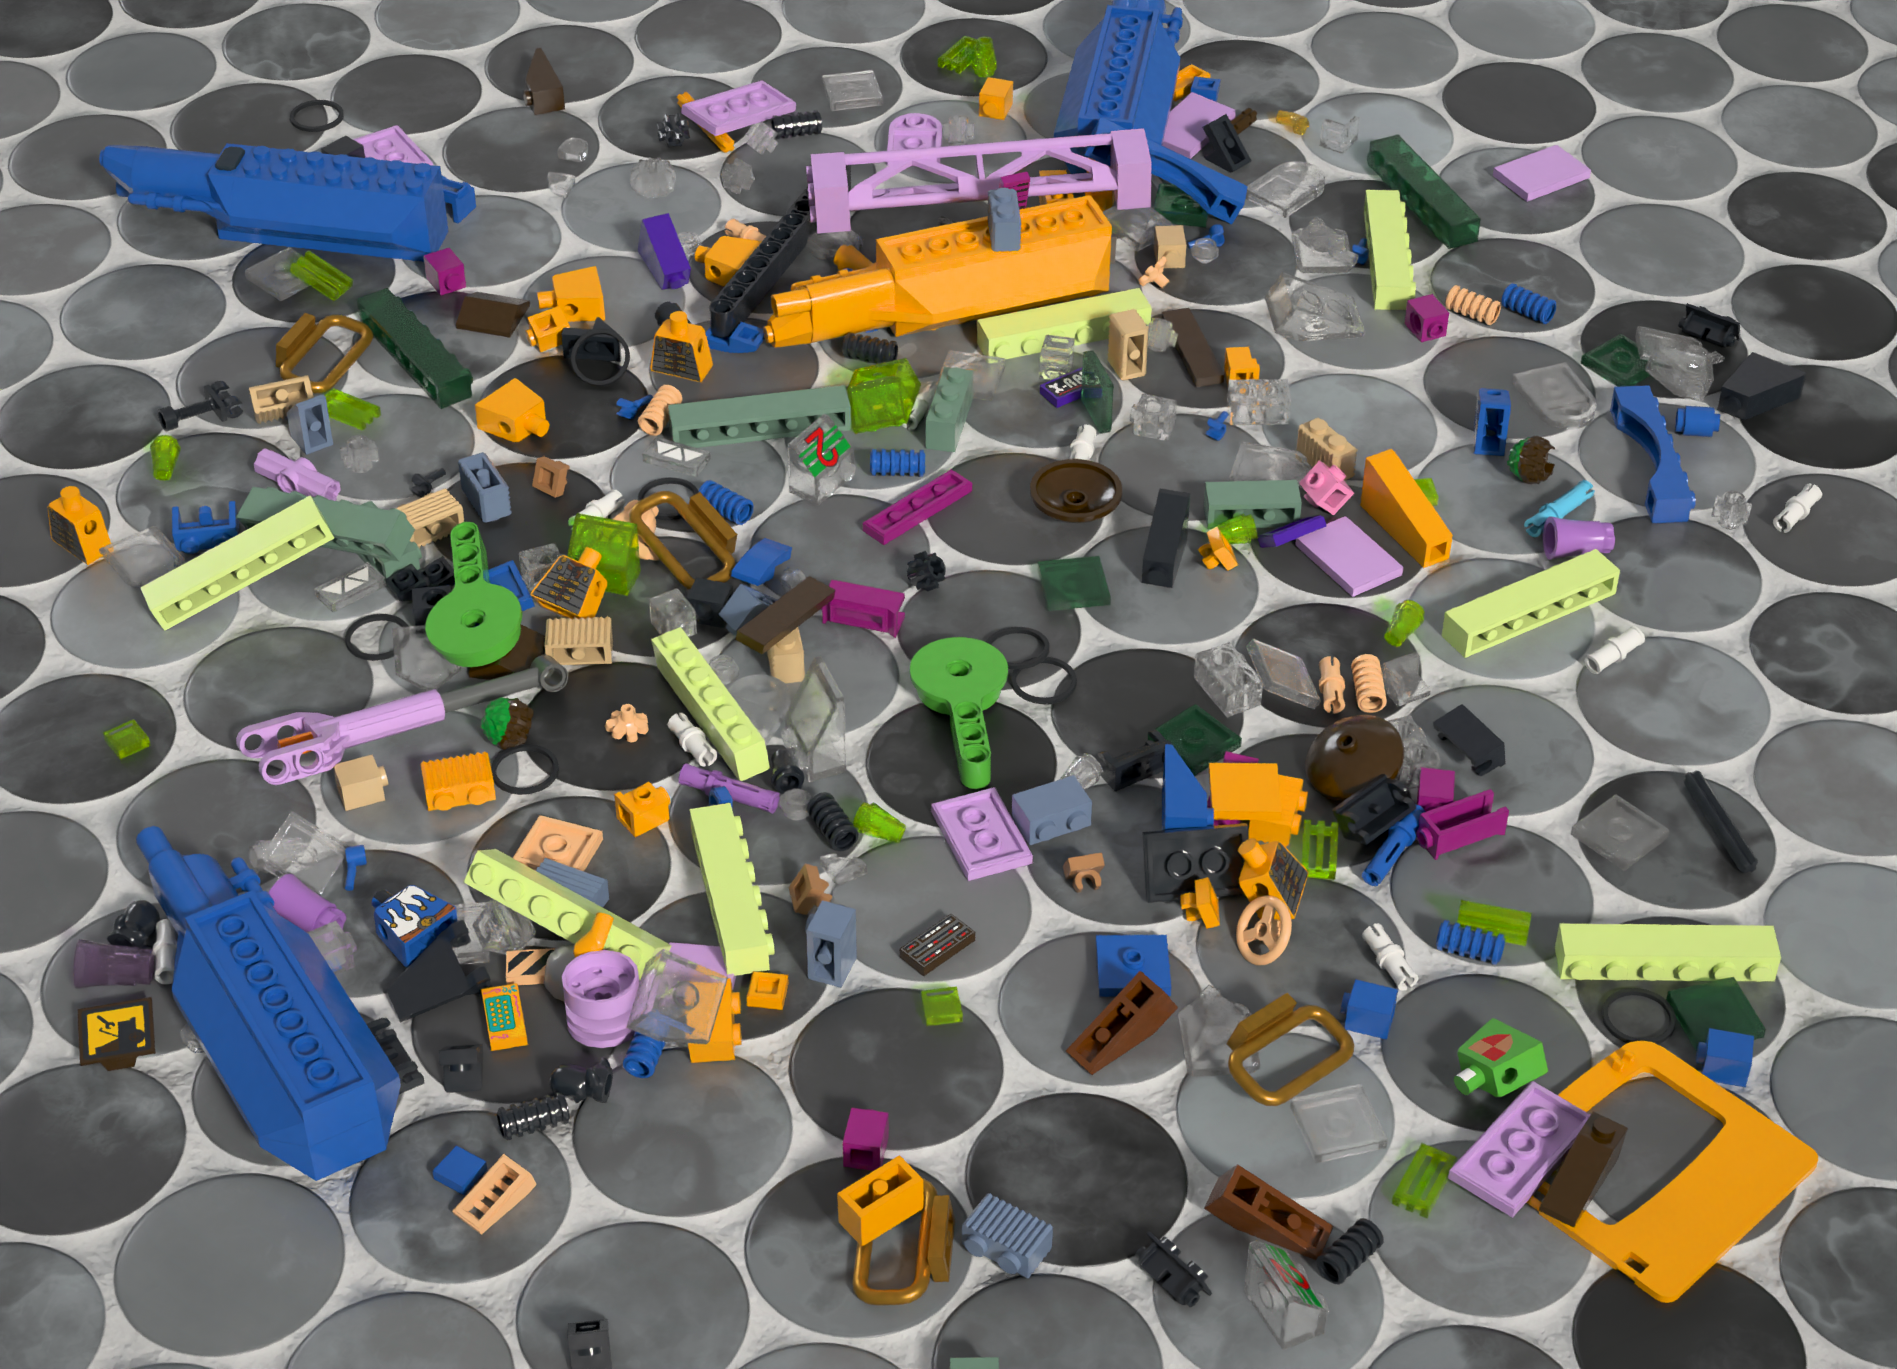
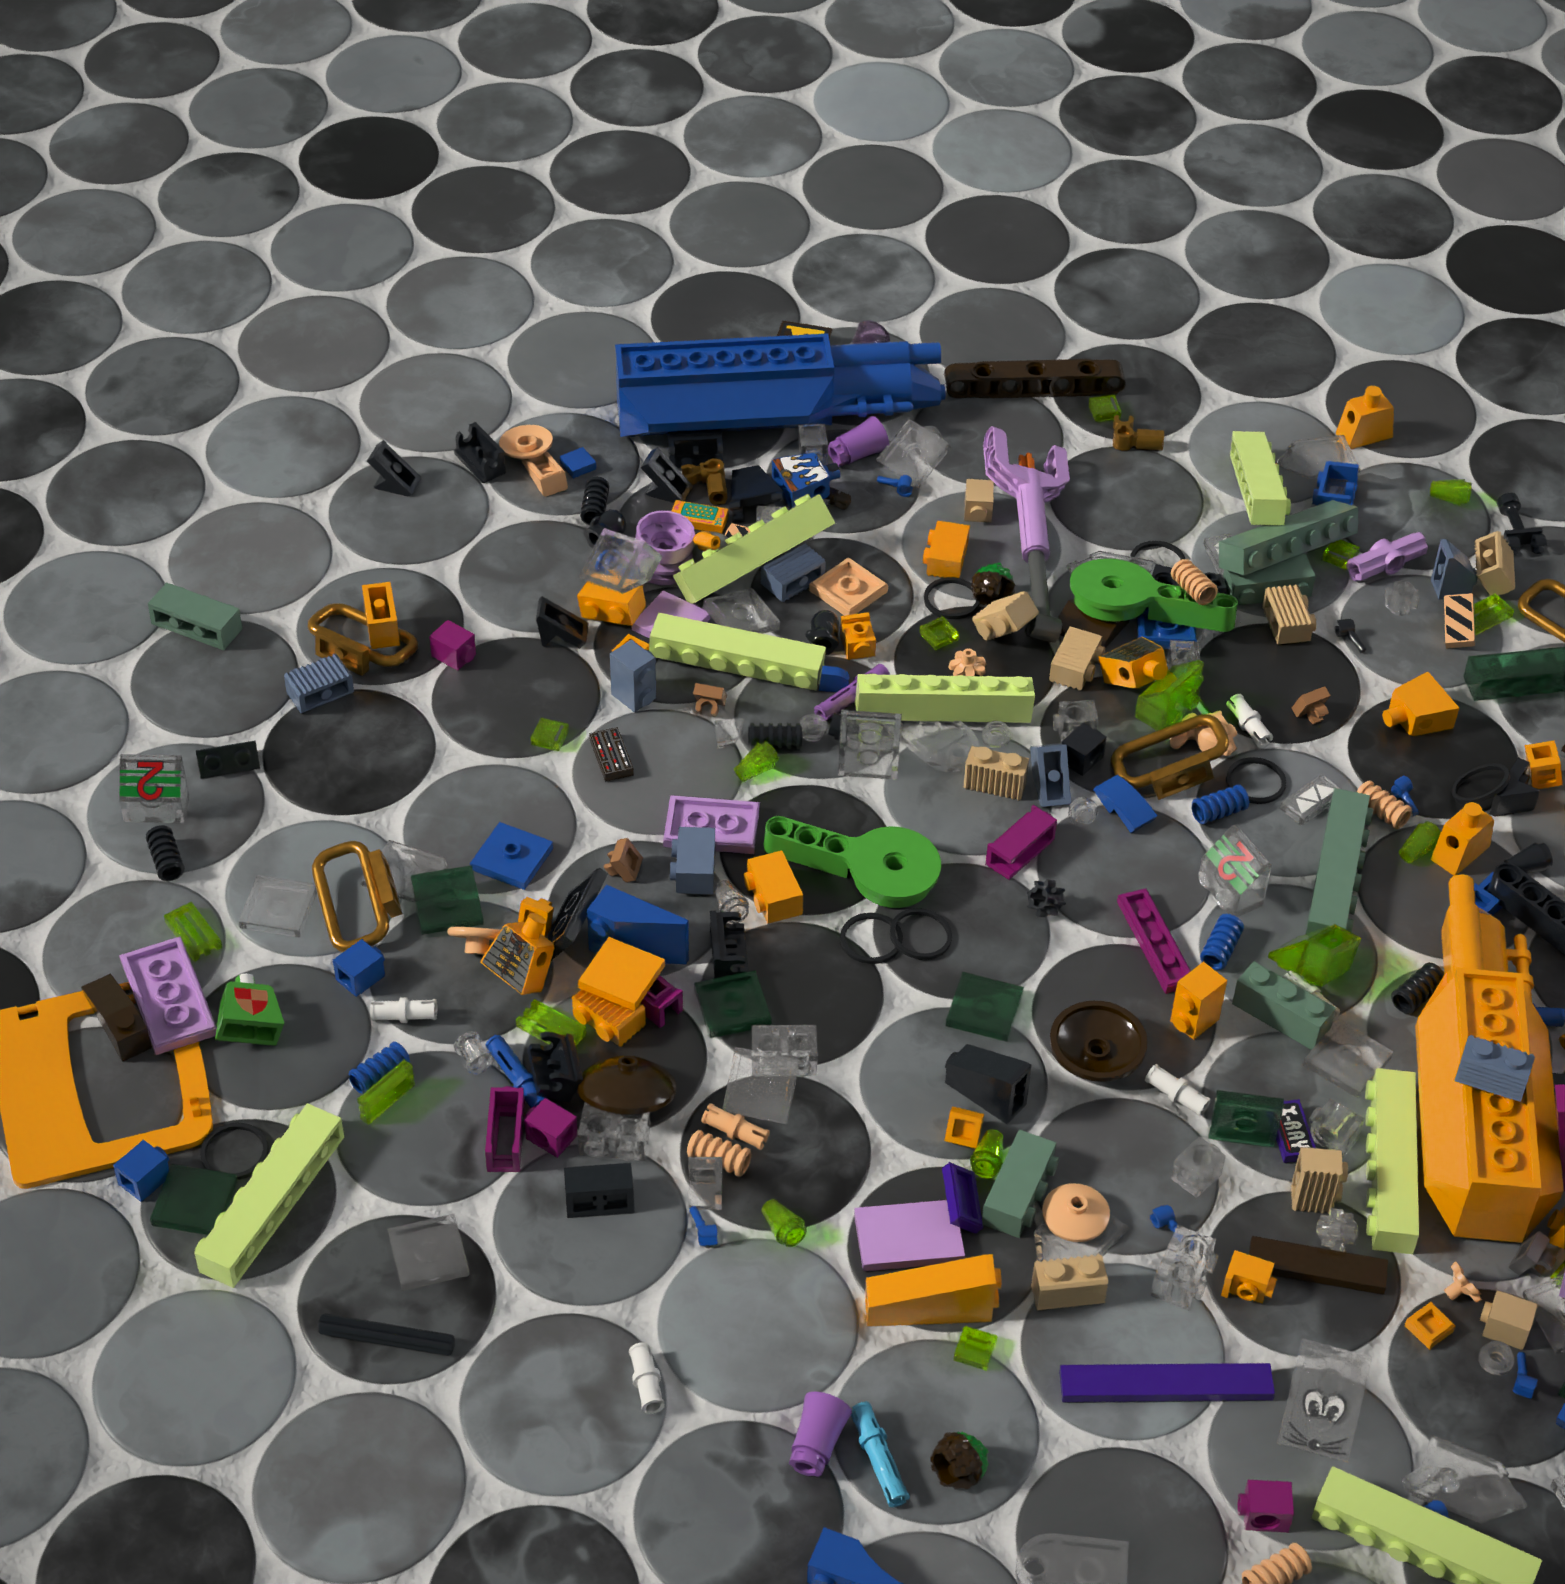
camera: 115 degrees right, 5 degrees up
(102, 800) = (1034, 378): none -> dark brown beam
(177, 706) = (1145, 439): none -> pearl gold bar
(375, 411) = (1459, 620): none -> light nougat tile
(418, 1027) = (713, 474): none -> pearl gold bar
(451, 1214) = (526, 441): none -> light nougat dish
(457, 547) = (1194, 582): none -> light nougat piece
(484, 487) = (1307, 651): sand blue brick -> none
(500, 1268) = (480, 454): none -> black hinge
(560, 692) = (1005, 615): none -> tan brick
(590, 758) = (939, 633): none -> clear neon green tile
(646, 836) = (824, 630): none -> black animal
(663, 910) = (742, 611): none -> clear tile
(694, 381) = (1420, 842): none -> clear neon green cone
(781, 1054) = (559, 622): none -> black slope
(785, 615) = (1007, 757): dark brown tile -> none
(990, 444) = (1198, 1000): none -> light orange brick
(1039, 750) = (774, 887): none -> light orange brick
(1123, 1024) = (452, 820): reddish brown slope -> none
(1200, 287) = (1430, 1325): none -> light orange tile
(1234, 982) = (446, 899): none -> clear green tile
(1253, 465) = (1072, 1222): none -> light nougat dish
(1267, 1213) = (230, 817): reddish brown slope -> none
(1321, 483) = (1006, 1237): bright pink brick -> none
(1364, 394) = (1166, 1382): none -> dark purple tile
(1395, 886) = (473, 1052): none -> clear bush
(1450, 668) = (706, 1233): none -> blue hand
(1493, 414) = (1046, 1456): blue torso -> none
(1530, 603) = (749, 1342): yellowish green brick -> none

